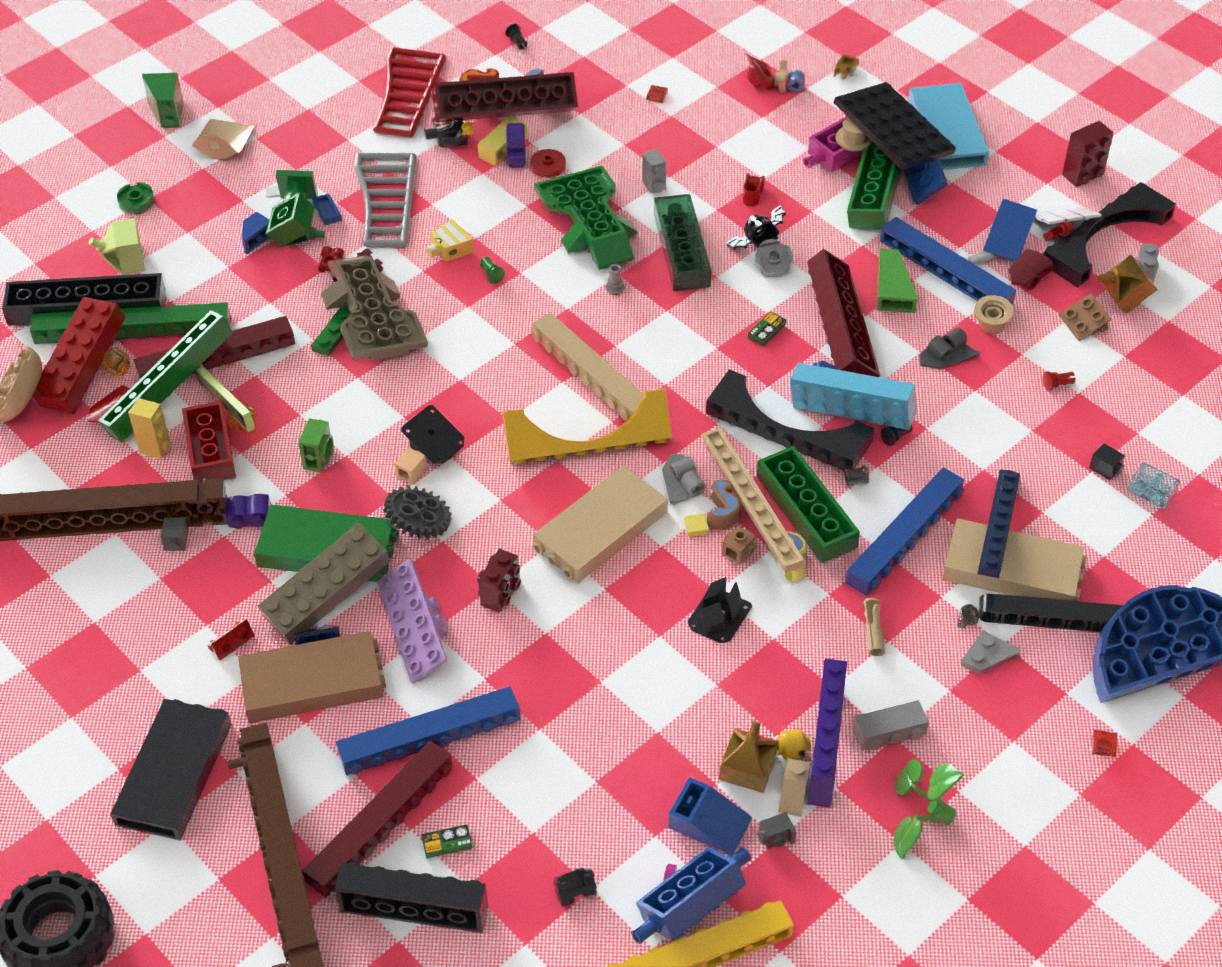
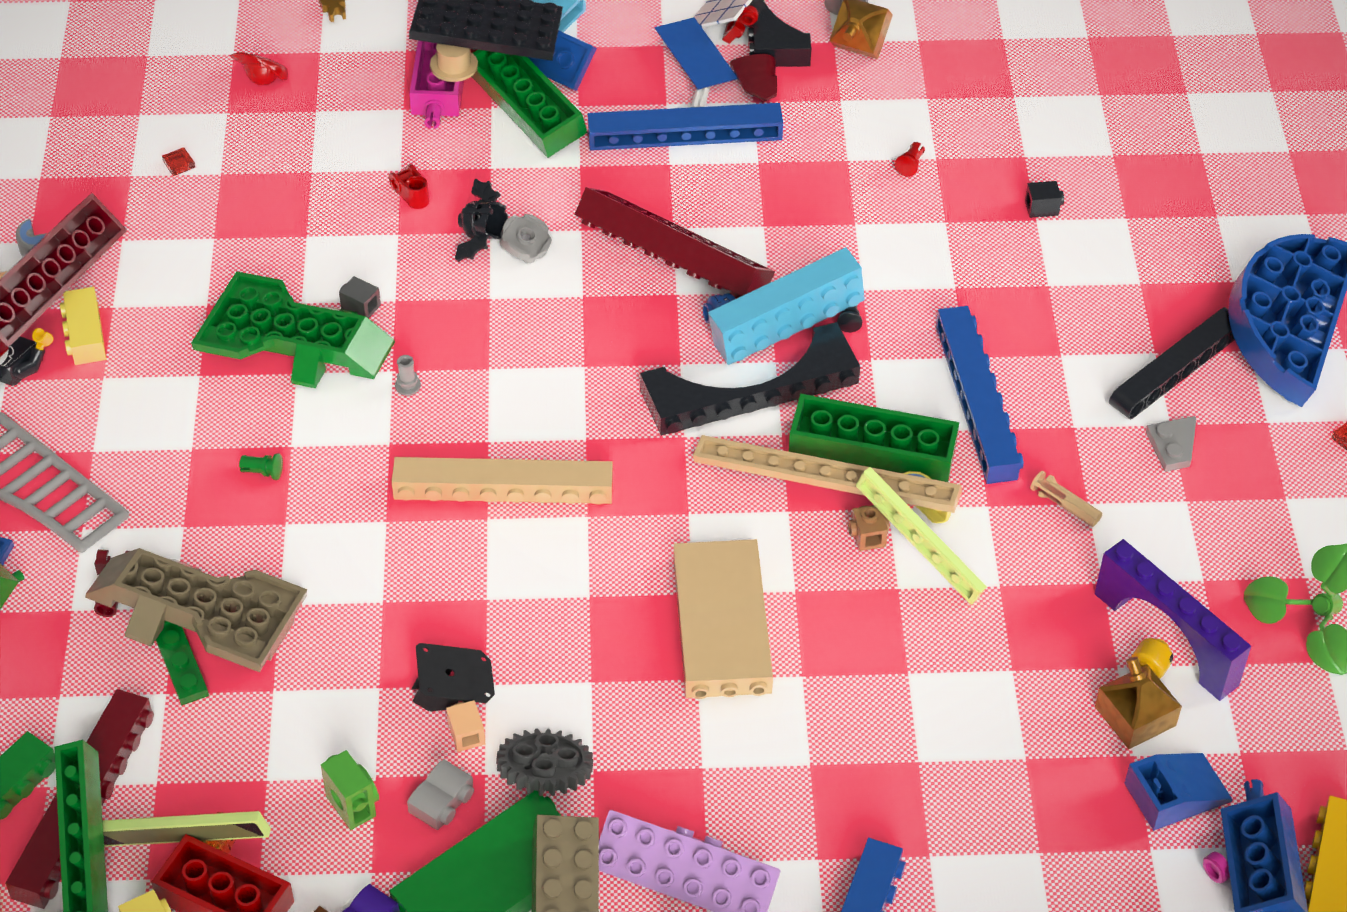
camera: 50 degrees left, 0 degrees up
(329, 254) = (65, 586): red piece -> none
(356, 486) = (441, 794): none -> light grey brick
(450, 242) = (179, 471): light yellow torso -> none
(499, 580) = (718, 752): dark red brick -> none
(516, 144) = (115, 316): dark purple animal -> none
(548, 162) = (162, 313): red plate -> none
(646, 424) = (638, 487): yellow arch -> none
(647, 225) = (360, 297): none -> dark grey brick
(654, 171) = (299, 238): light grey brick -> none
(682, 242) = (424, 288): clear green brick -> none
(682, 478) = (727, 511): light grey panel -> none
(696, 525) = (800, 544): light yellow tile -> none
(709, 617) = (942, 611): black piece -> none
(728, 506) = (803, 499): medium nougat animal -> none
(751, 570) = (920, 536): none -> yellowish green tile
(767, 328) = (607, 310): tile -> none
(776, 831) = (1239, 743): dark grey brick -> none
(781, 77) = (288, 56): tan piece -> none
(794, 787) = (1199, 693): tan slope -> none
(799, 77) = (306, 50): medium blue wheel -> none
(856, 475) = (872, 379): clear smoke bush -> none
(890, 725) = (1198, 563): light grey brick -> none
(894, 285) = (661, 178): bright green slope -> none
(947, 350) = (788, 205): dark grey panel -> none
(968, 616) = (1119, 424): clear smoke plate -> none
(993, 313) = (787, 139): tan piece -> none
(999, 524) = (1049, 320): dark blue plate -> none
(1029, 567) = (1092, 347): tan brick -> none
(1085, 317) = (858, 86): medium nougat hinge -> none
(1154, 485) = (1105, 189): clear light blue brick -> none

